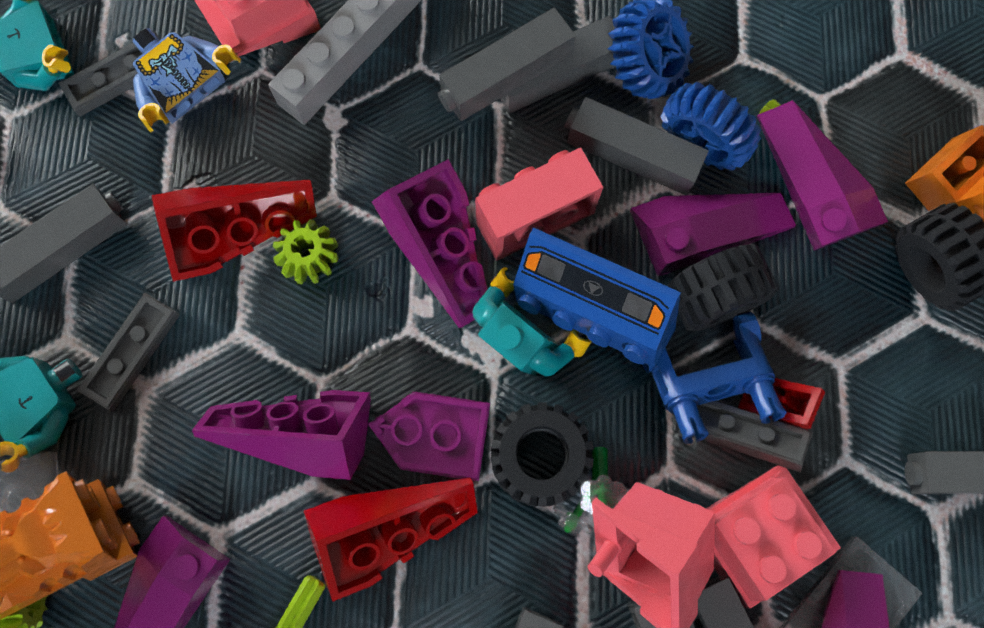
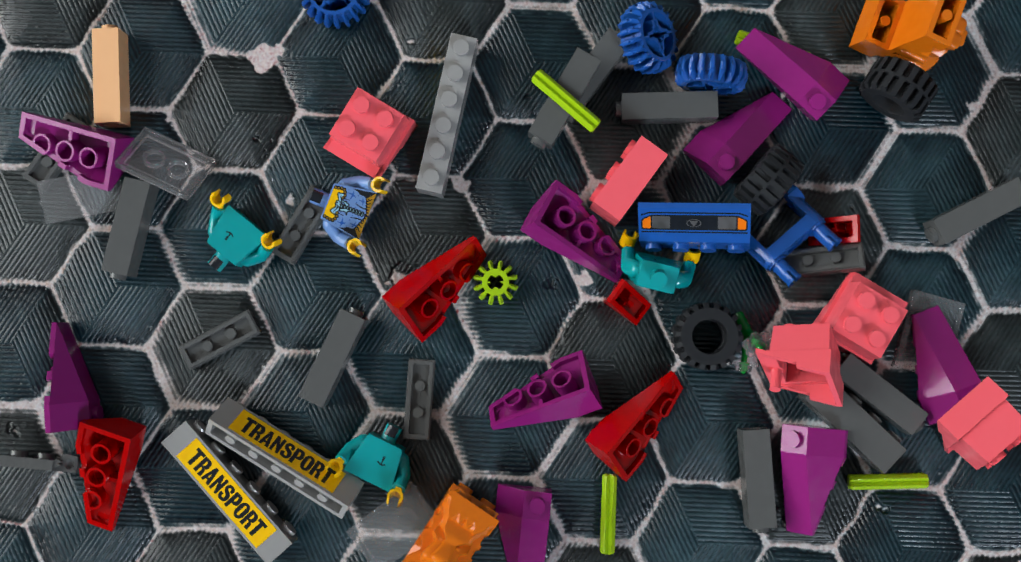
camera: 20 degrees left, 10 degrees up
(435, 434) = (634, 354): magenta tile -> none
(460, 358) = (627, 302): none -> red slope
(505, 58) = (566, 100): none -> lime axle

